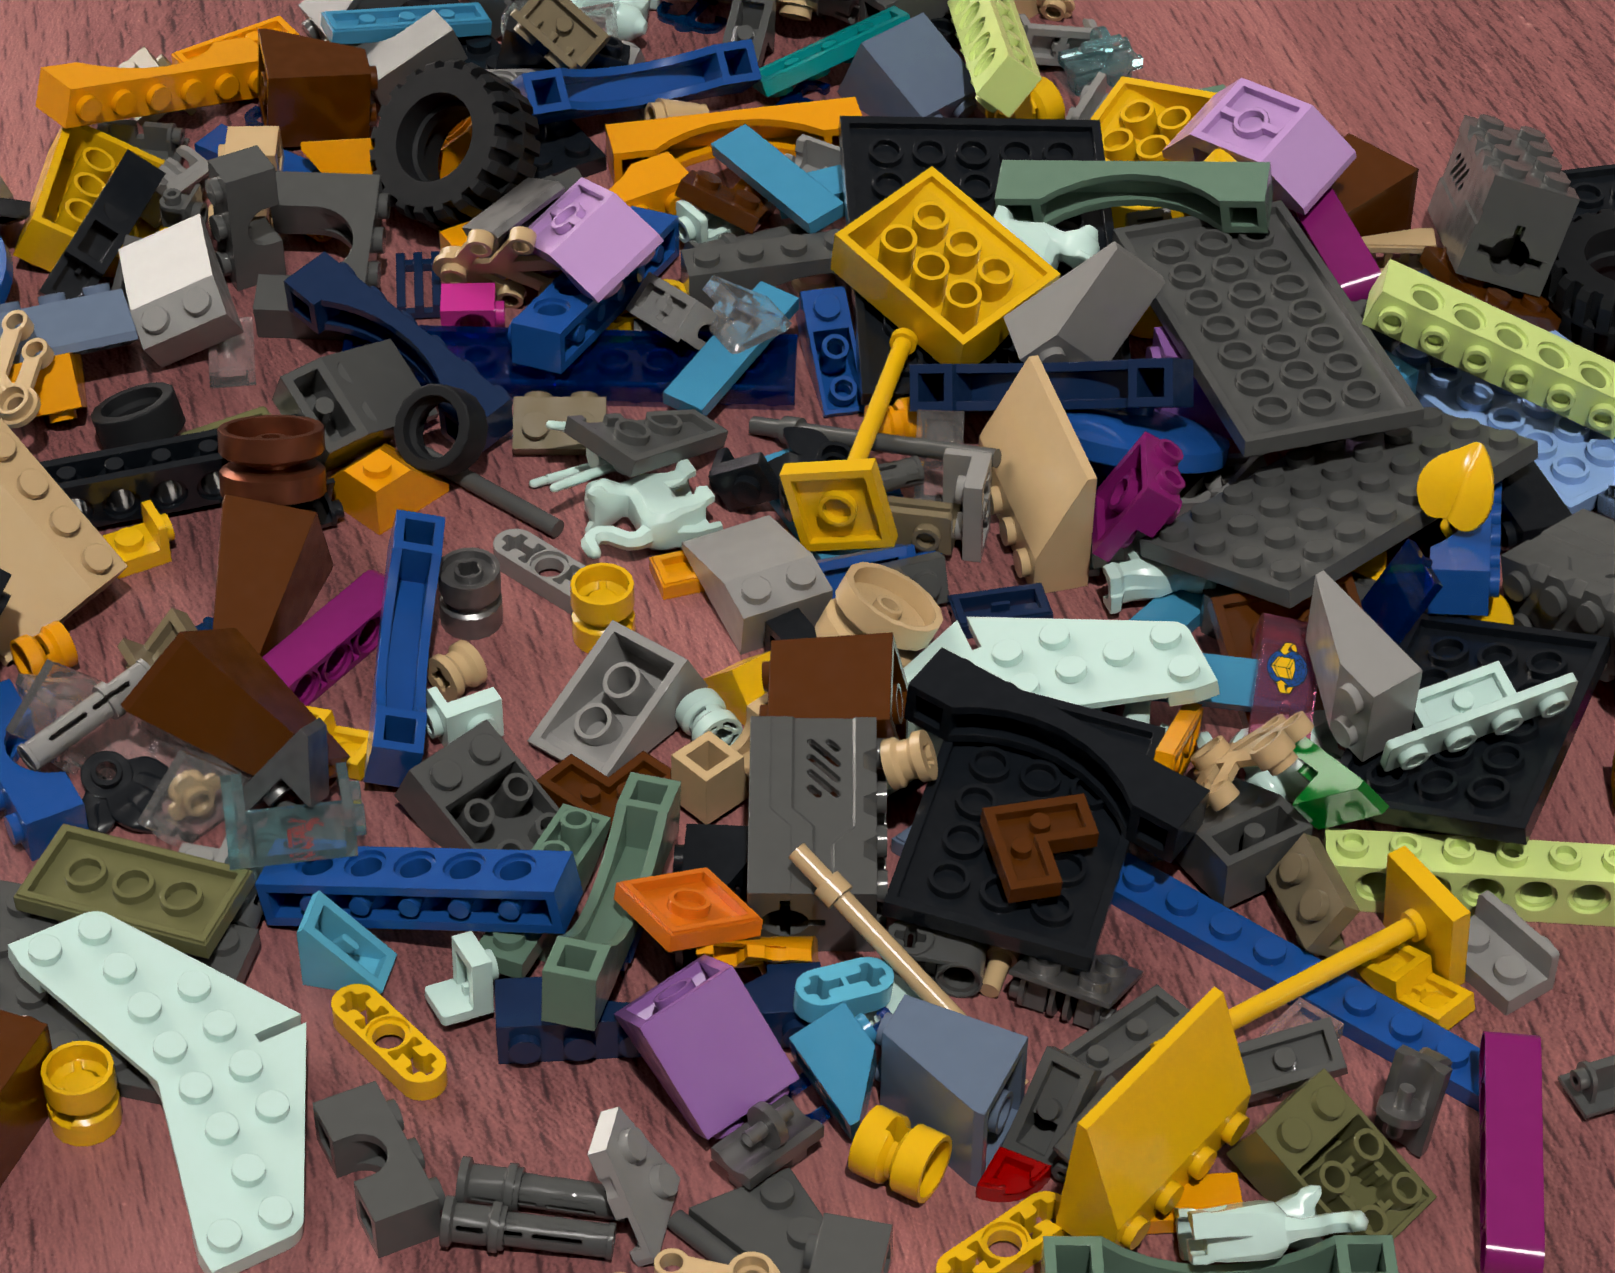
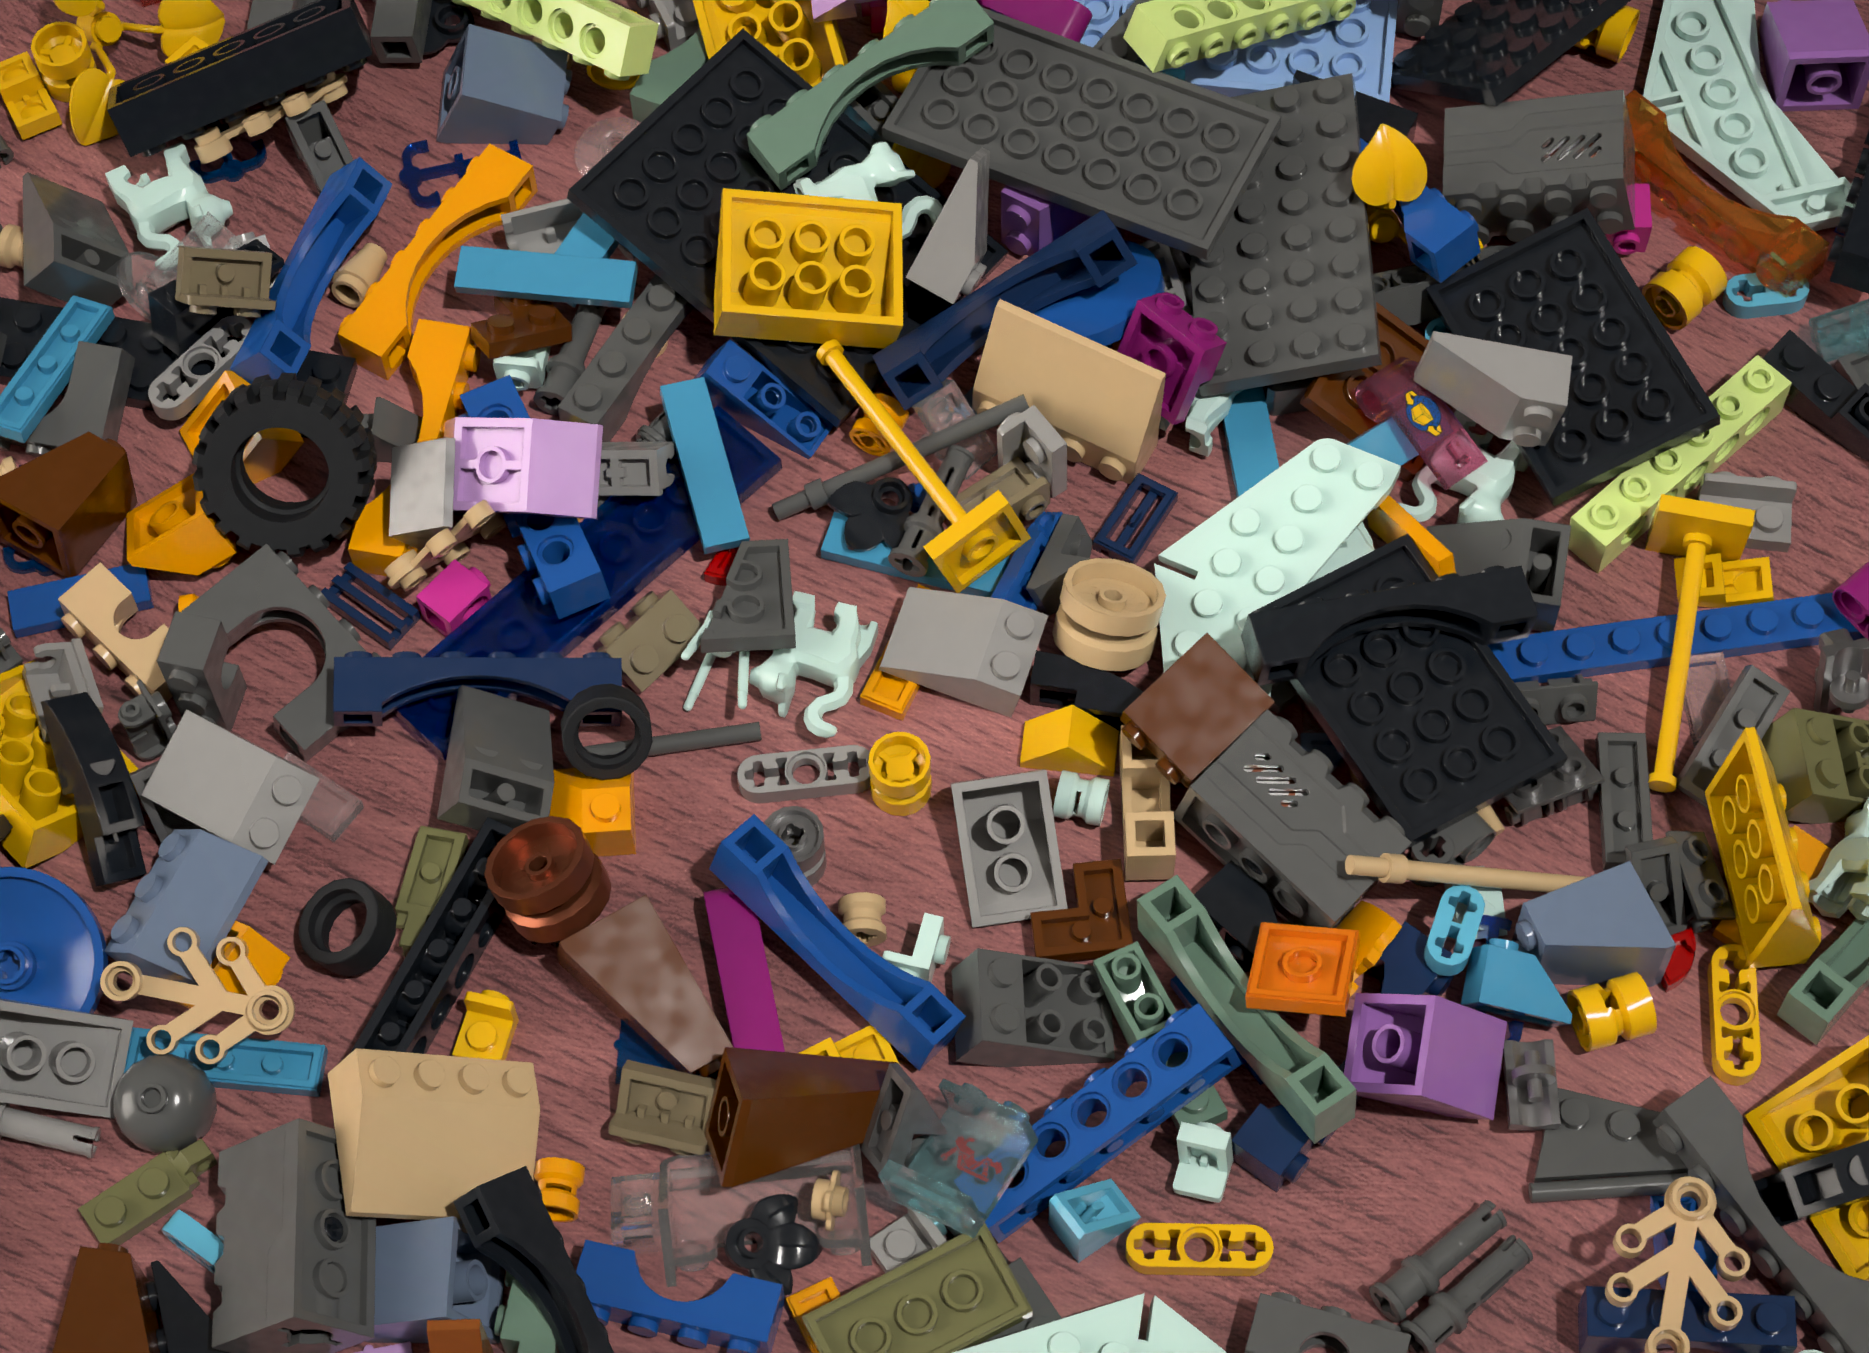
camera: 45 degrees left, 20 degrees up
(82, 718) = (696, 1214): light grey pin -> none
(635, 1180) = (1498, 1196): light grey wing -> none
(743, 315) = (700, 433): clear slope -> none
(743, 480) = (850, 576): black bracket -> none
(816, 59) = (413, 106): teal plate -> none
(908, 759) = (1309, 718): tan wheel -> none
(1026, 837) = (1442, 709): reddish brown plate -> none
(1151, 944) = (1562, 699): none -> dark grey hinge
(1266, 747) = (1446, 518): tan plant -> none
(1313, 896) = (1616, 576): dark tan bracket -> none
(1333, 790) = (1579, 485): green slope -> none
(1402, 592) = (1422, 286): clear blue piece -> none
(1469, 707) = (1593, 341): light aqua bracket -> none

